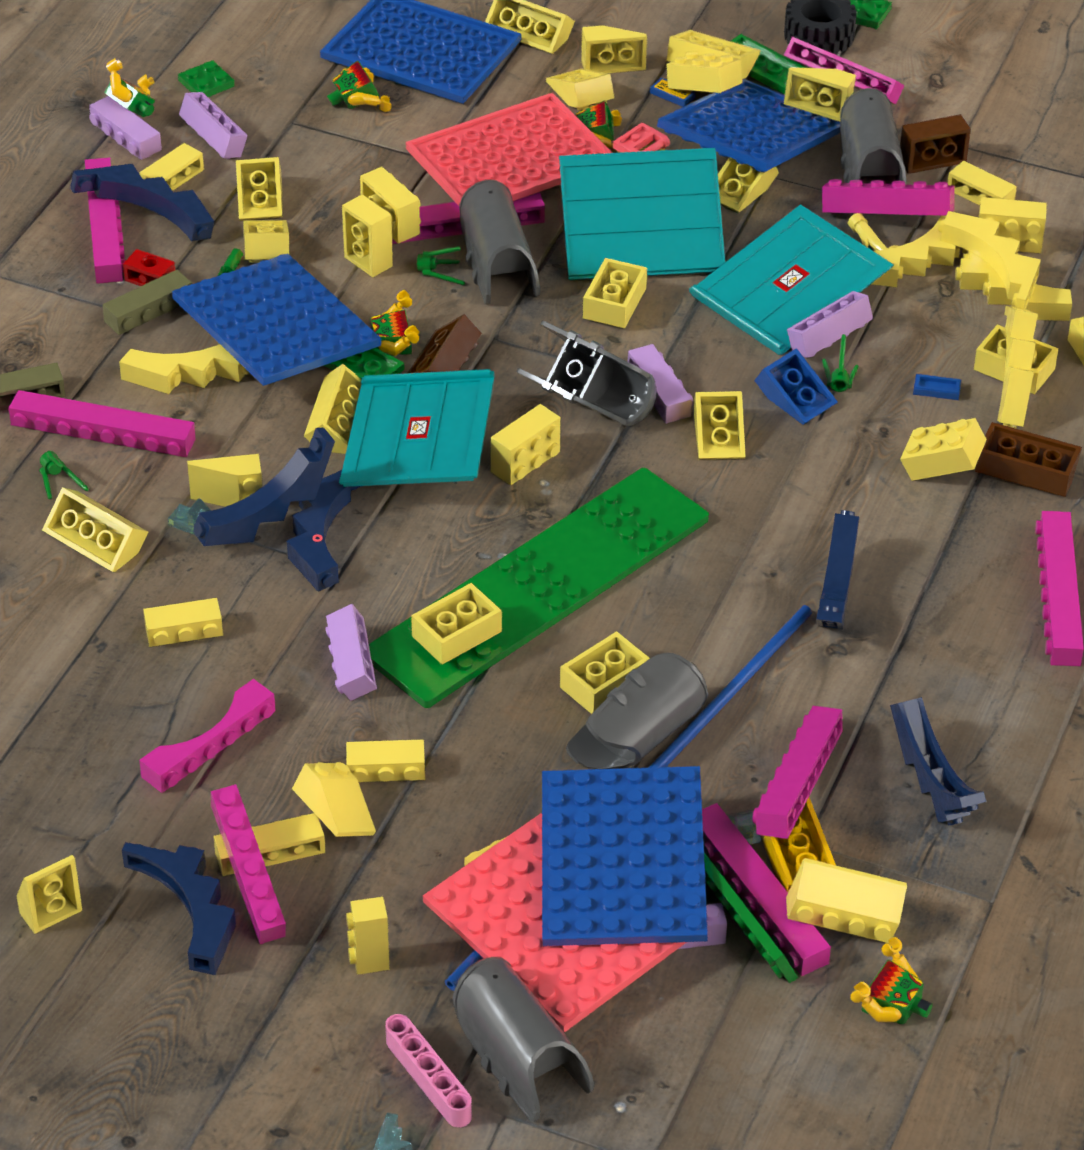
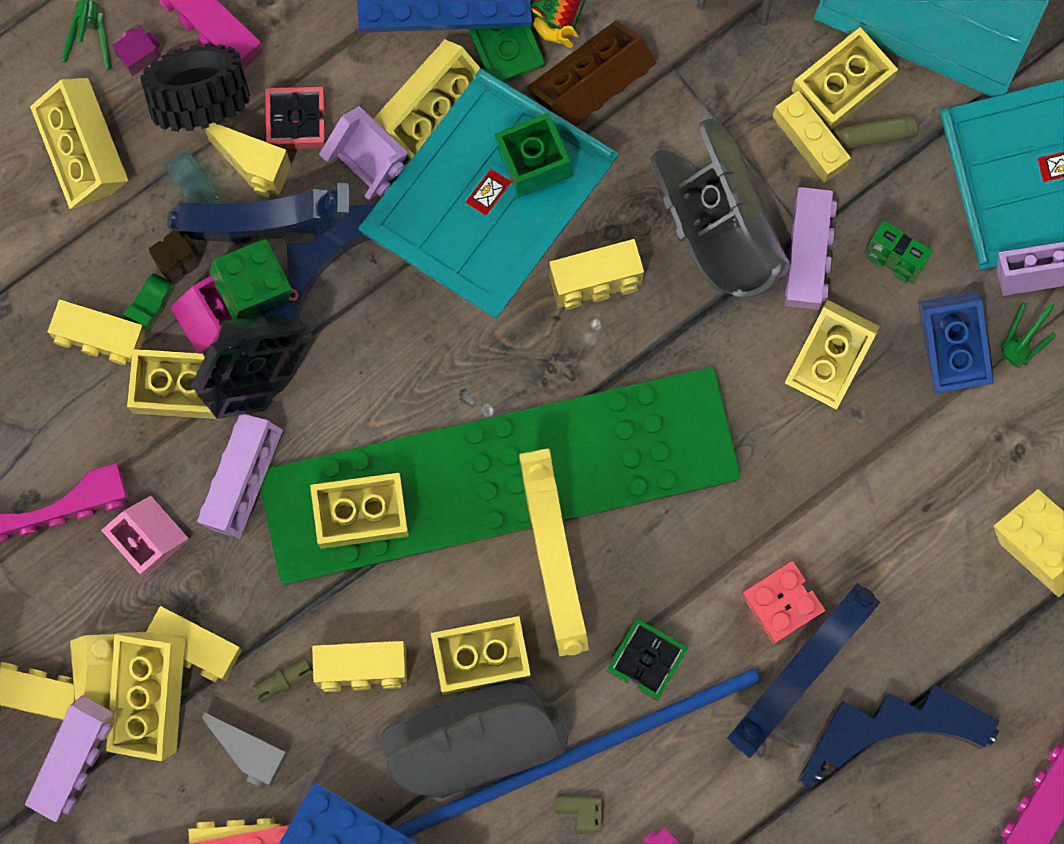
camera: 30 degrees right, 35 degrees up
(103, 467) = (136, 49): none -> magenta brick
(166, 451) = (195, 87): none -> black tyre
(212, 587) = (150, 302): none -> green leg
(214, 553) = (175, 256): none -> dark brown brick
(250, 443) = (295, 117): none -> piece
(263, 576) = (201, 313): none -> dark pink slope
(266, 621) = (163, 383): none -> light yellow brick
(283, 531) = (250, 280): none -> green brick
(299, 434) = (366, 151): none -> lavender panel
(302, 718) = (145, 535): none -> bright pink slope
(319, 562) = (250, 363): none -> black piece
(343, 850) = (69, 758): none -> lavender brick
(373, 790) = (146, 694): none -> light yellow slope
(437, 386) = (533, 155): none -> green brick
(469, 754) = (283, 680): none -> olive pin
(469, 802) = (250, 754): none -> light grey slope
(521, 711) = (359, 665): none -> light yellow brick
(613, 594) = (553, 552): none -> light yellow arch
(615, 328) = (811, 136): none -> light yellow brick
(655, 314) = (877, 132): none -> olive axle
(721, 355) = (898, 252): none -> green piece
(724, 628) = (653, 649): none -> black piece
(747, 732) = (584, 808): none -> olive piece
(793, 564) = (774, 611): none -> coral piece
(946, 576) = (854, 730): none -> dark blue arch

